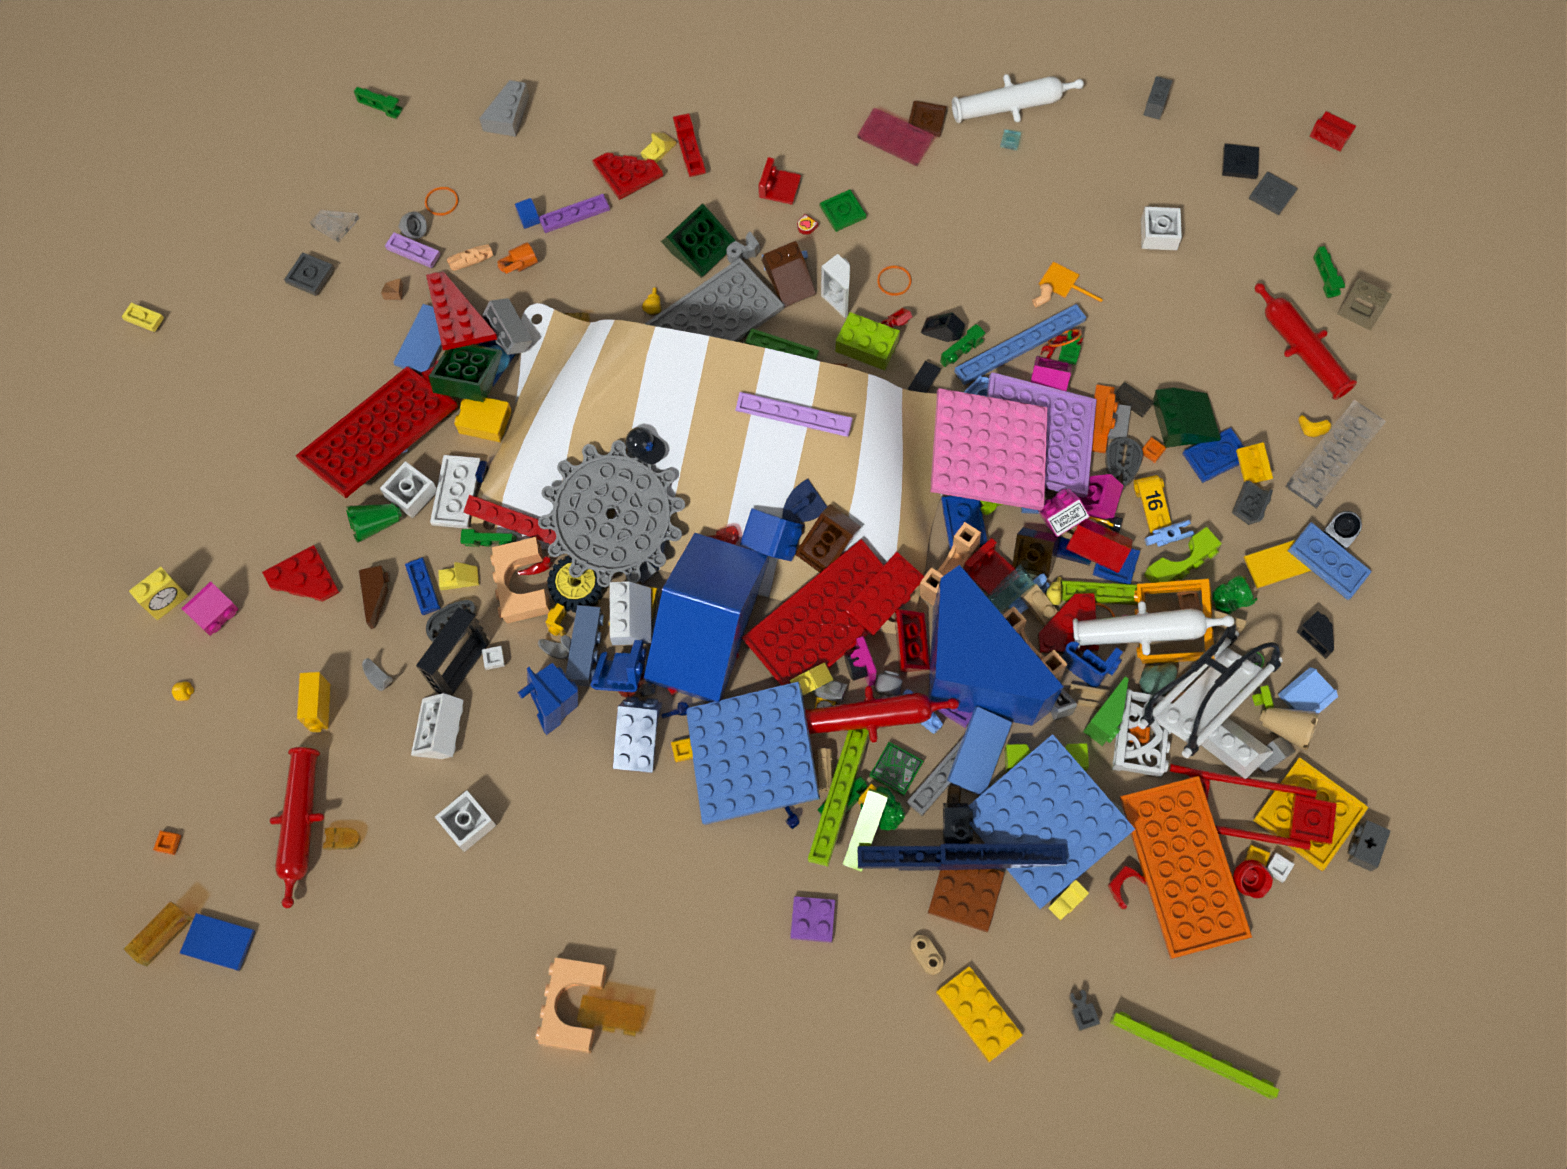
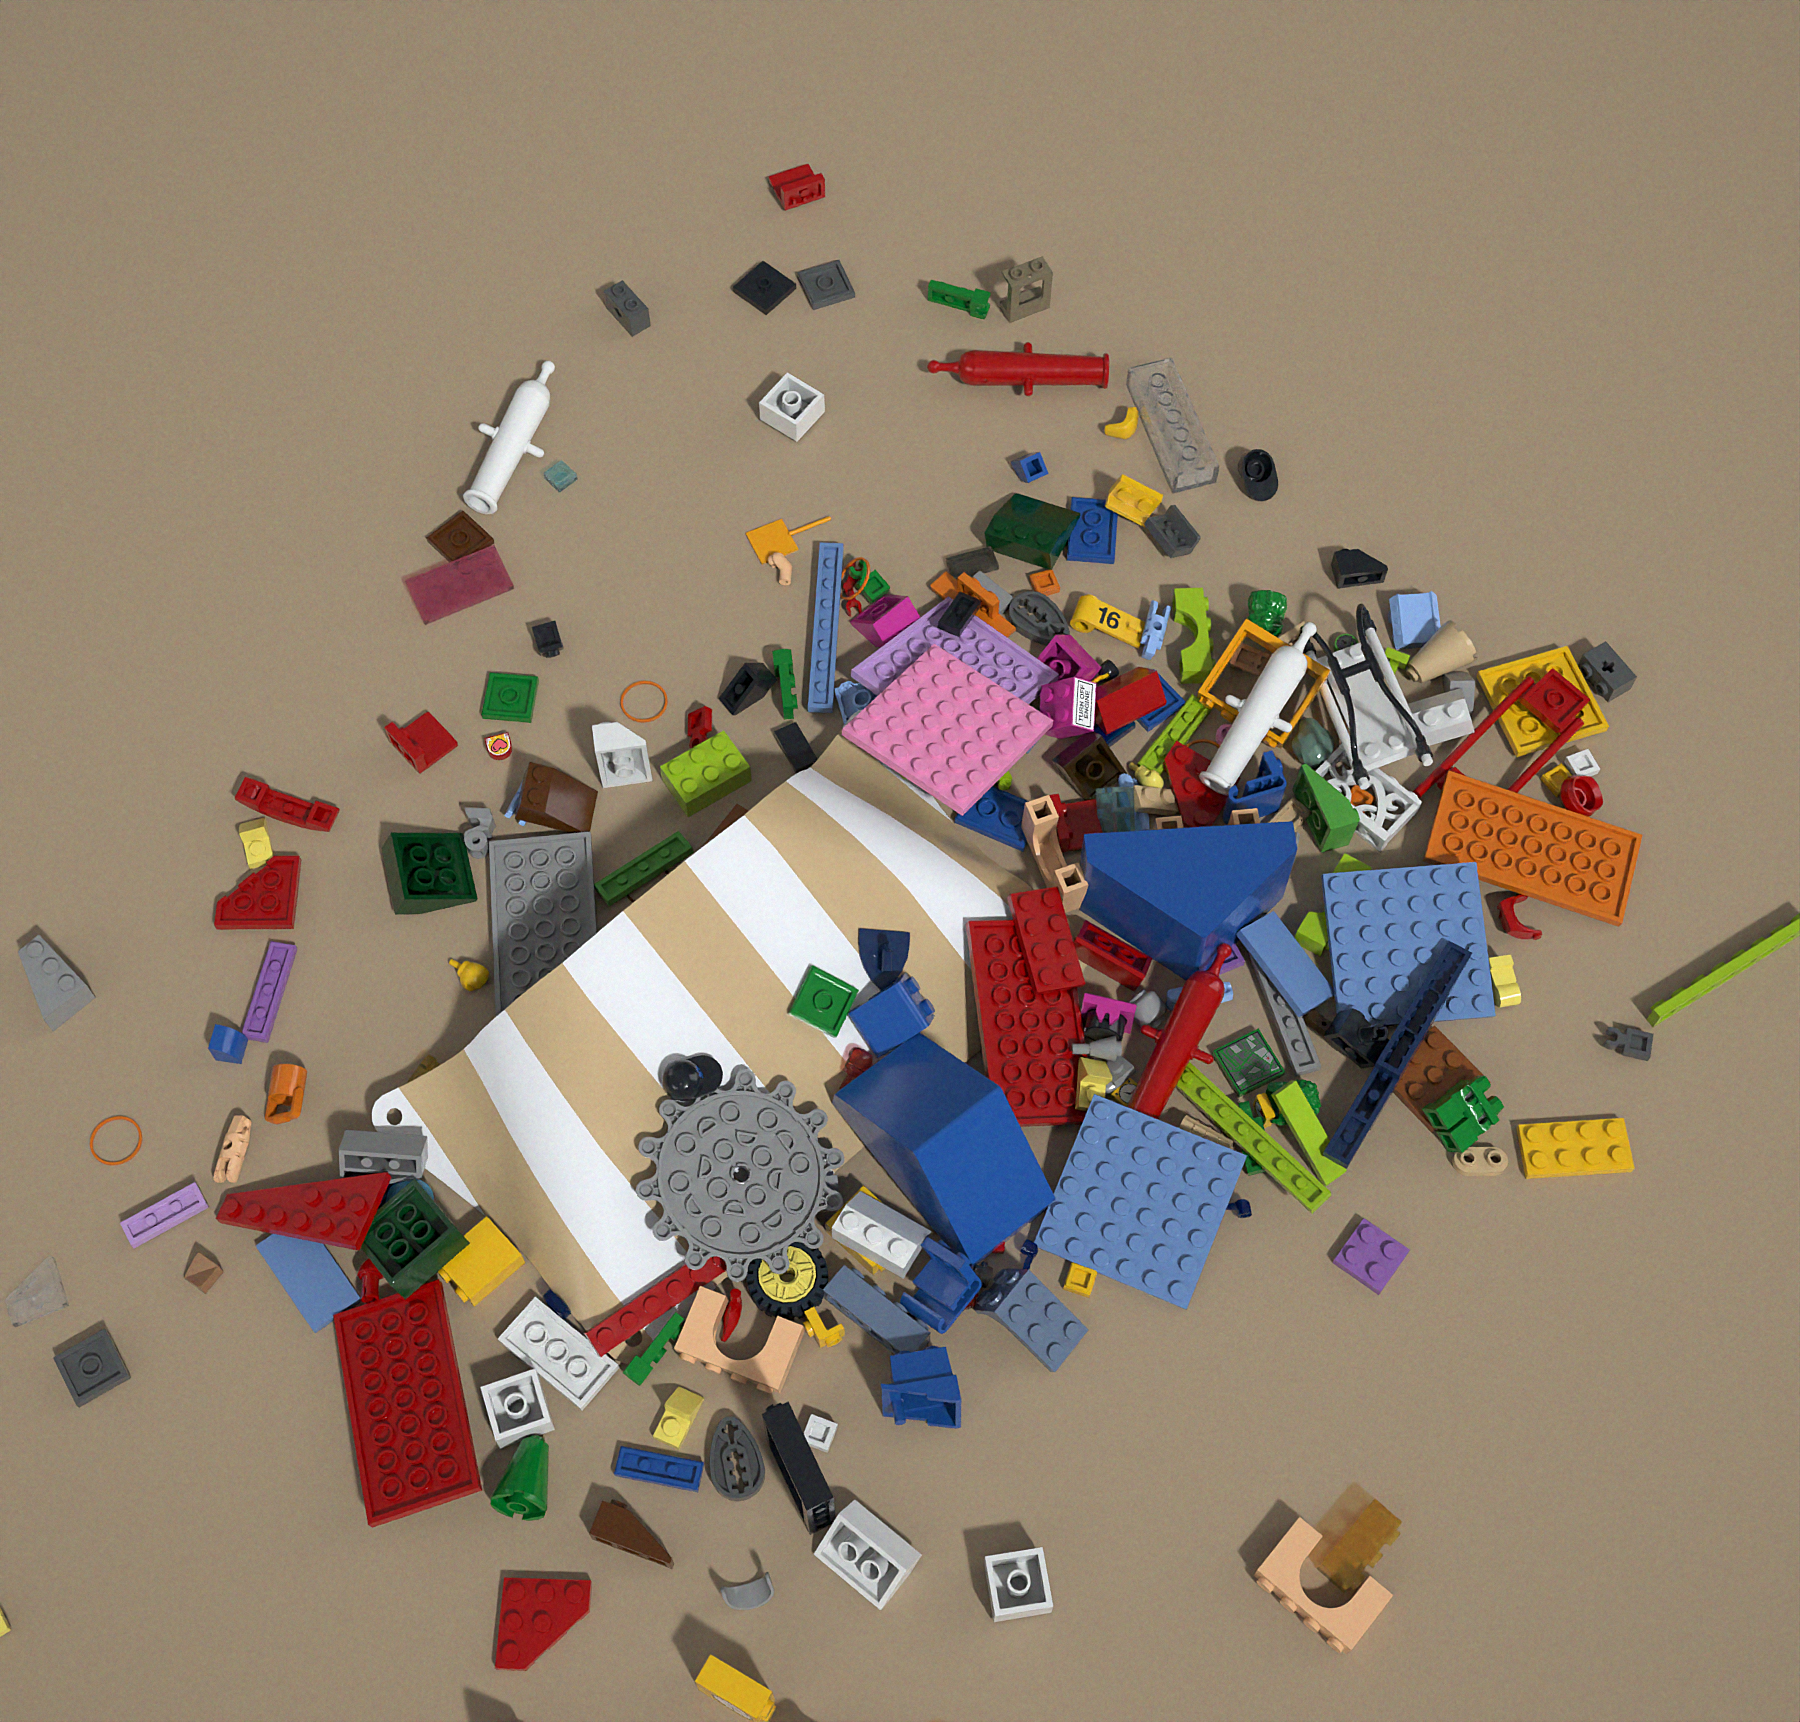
camera: 60 degrees left, 5 degrees down
(413, 225) = (129, 1193): light grey helmet -> none
(556, 650) = (859, 1349): light grey helmet -> none
(748, 489) = (823, 1001): none -> green tile
(794, 414) = (781, 887): lavender tile -> none
(827, 539) = (943, 956): reddish brown slope -> none
(839, 673) = (1104, 1048): none -> light grey cone
(894, 203) = (548, 639): none -> black bracket
(957, 920) = (1464, 1113): none -> green hips
(1084, 410) = (959, 614): none -> black plate
(1232, 389) = (1030, 467): none -> blue brick
(1274, 565) = (1256, 549): yellow piece -> none
(1329, 561) = (1283, 508): medium blue tile -> none

